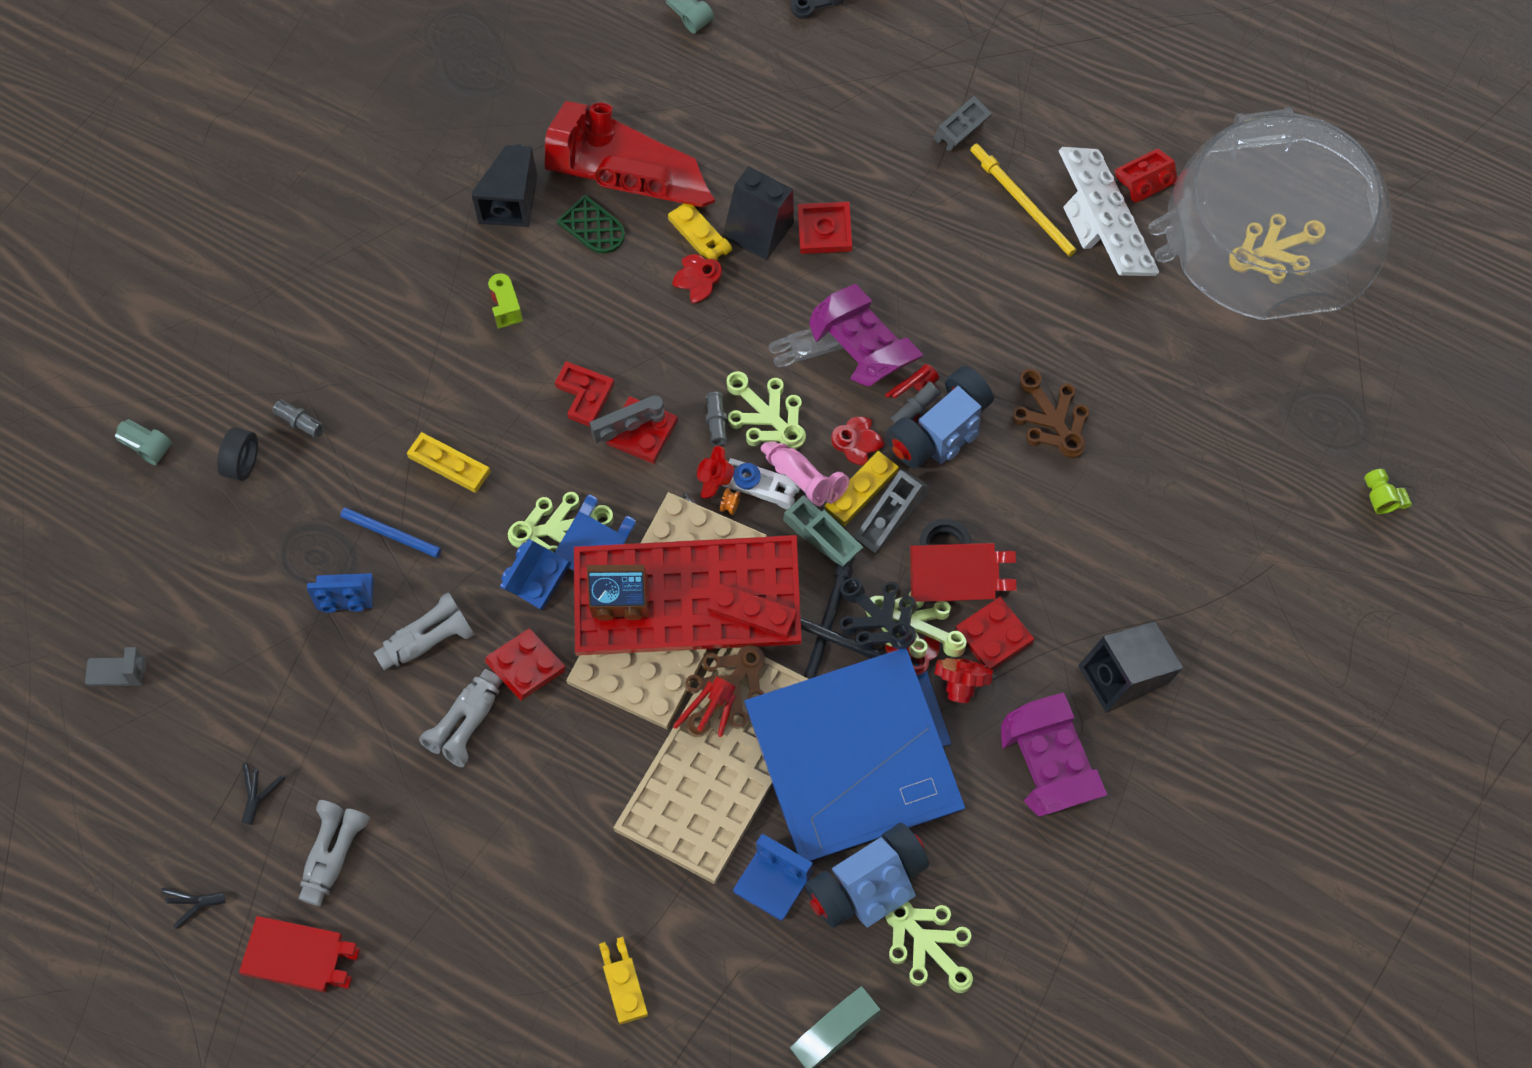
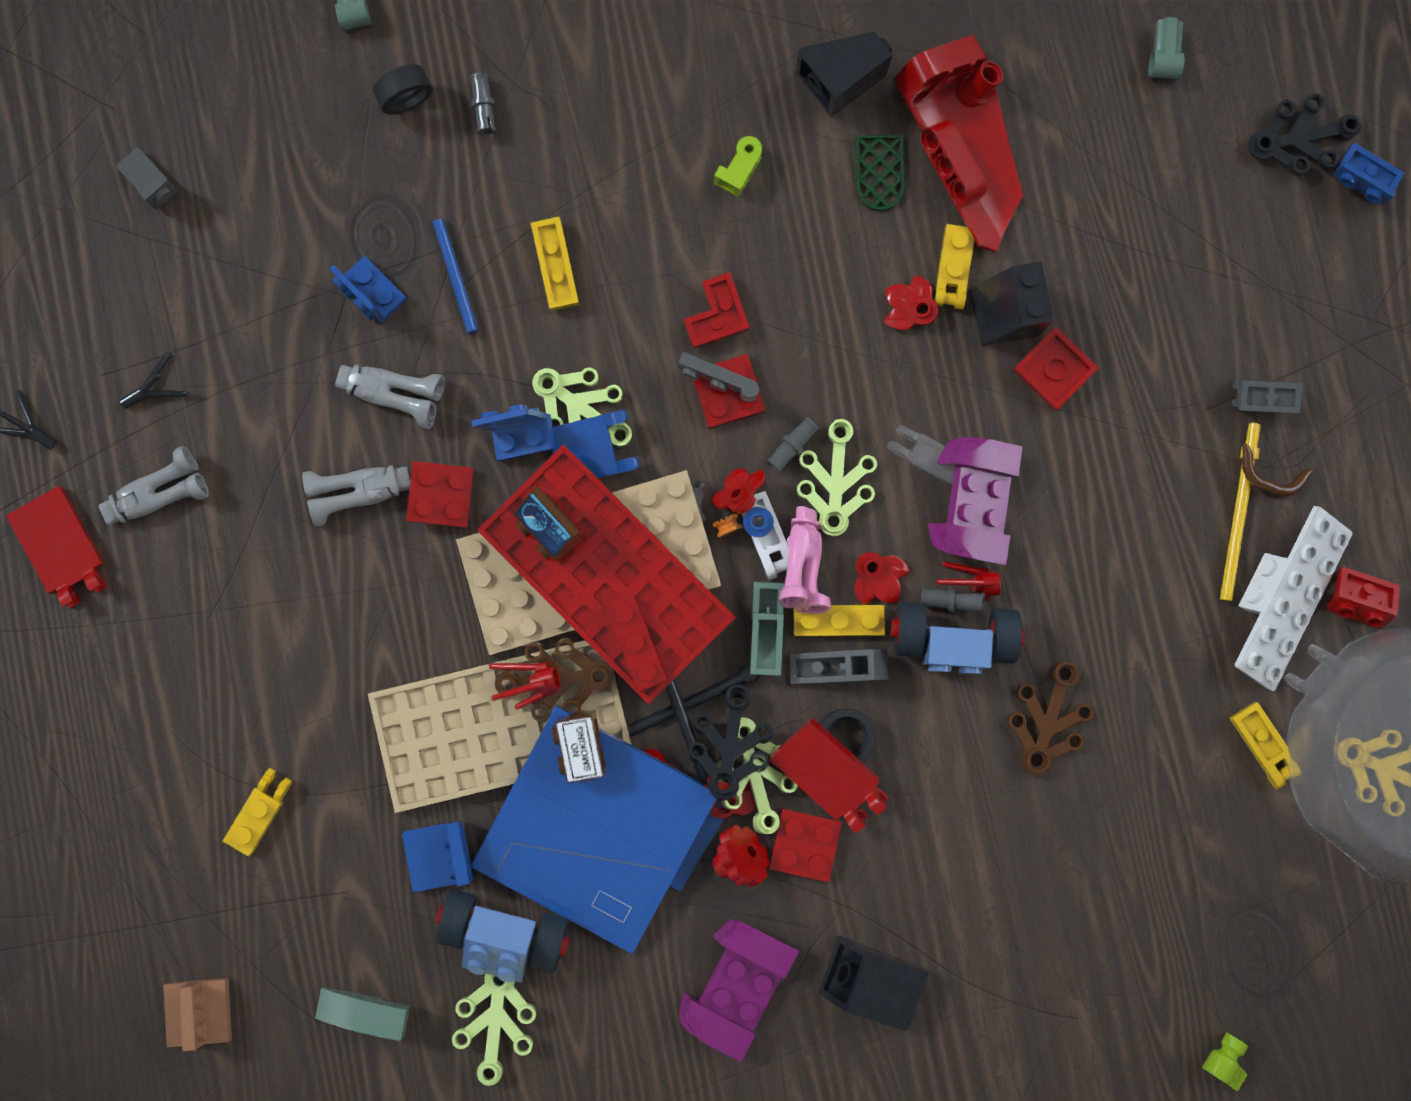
camera: 40 degrees right, 20 degrees up
(787, 702) = (579, 746): none -> brick
(1017, 170) = (1268, 485): none -> reddish brown animal
(1188, 303) = (1263, 742): none -> yellow plate

